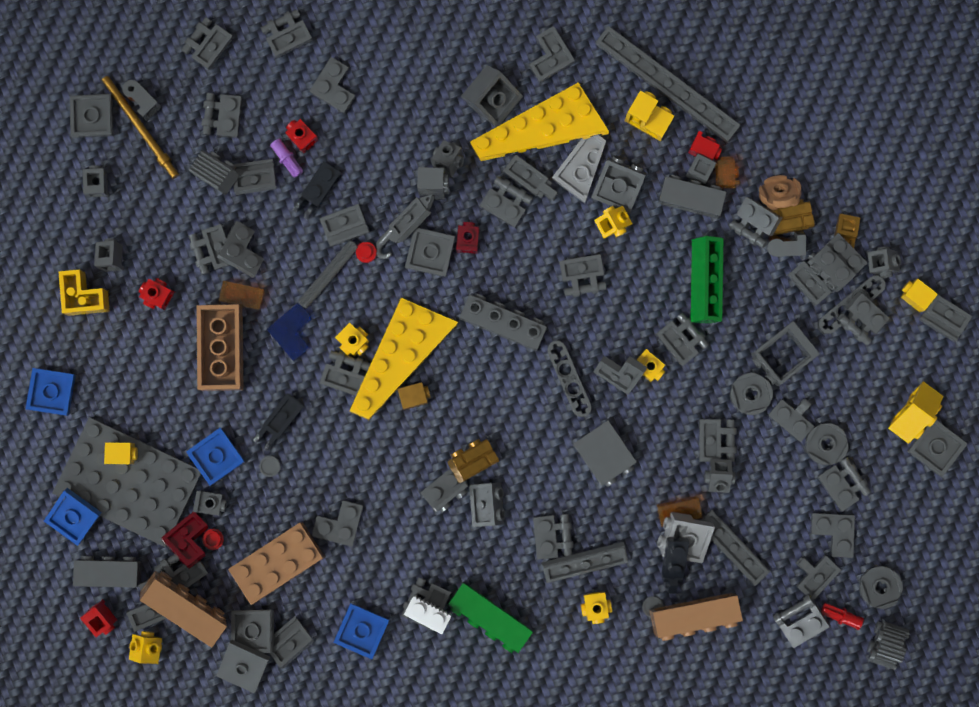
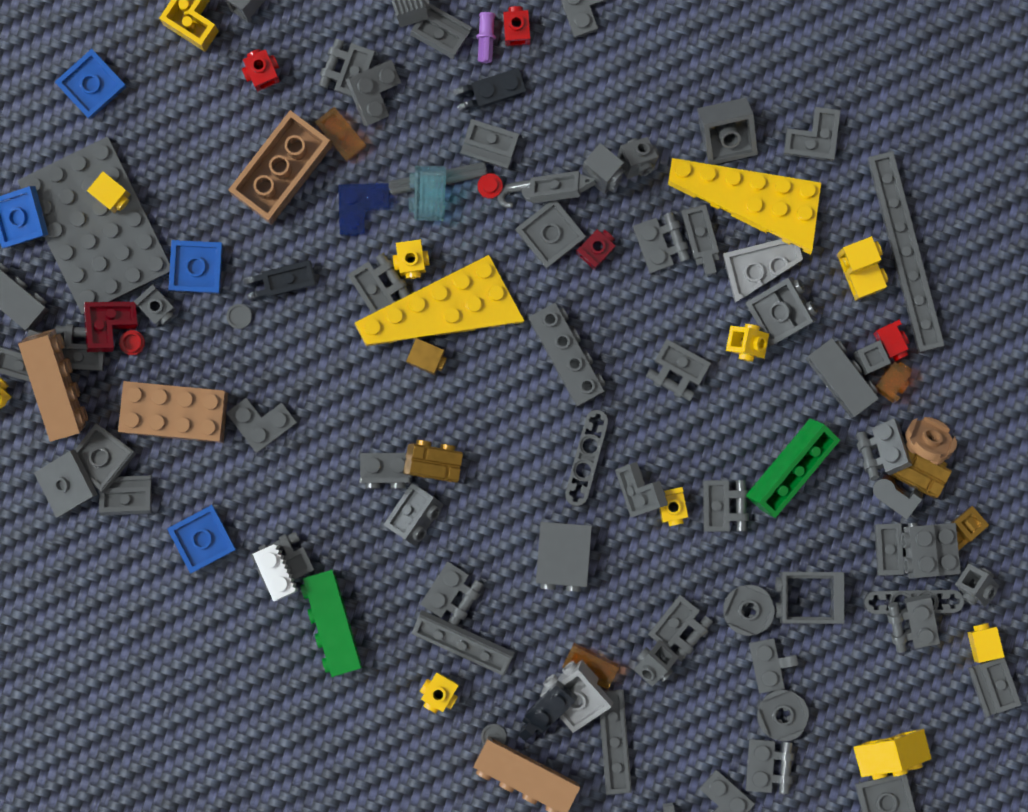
camera: 40 degrees right, 0 degrees up
(330, 288) = (428, 193): none -> clear light blue brick

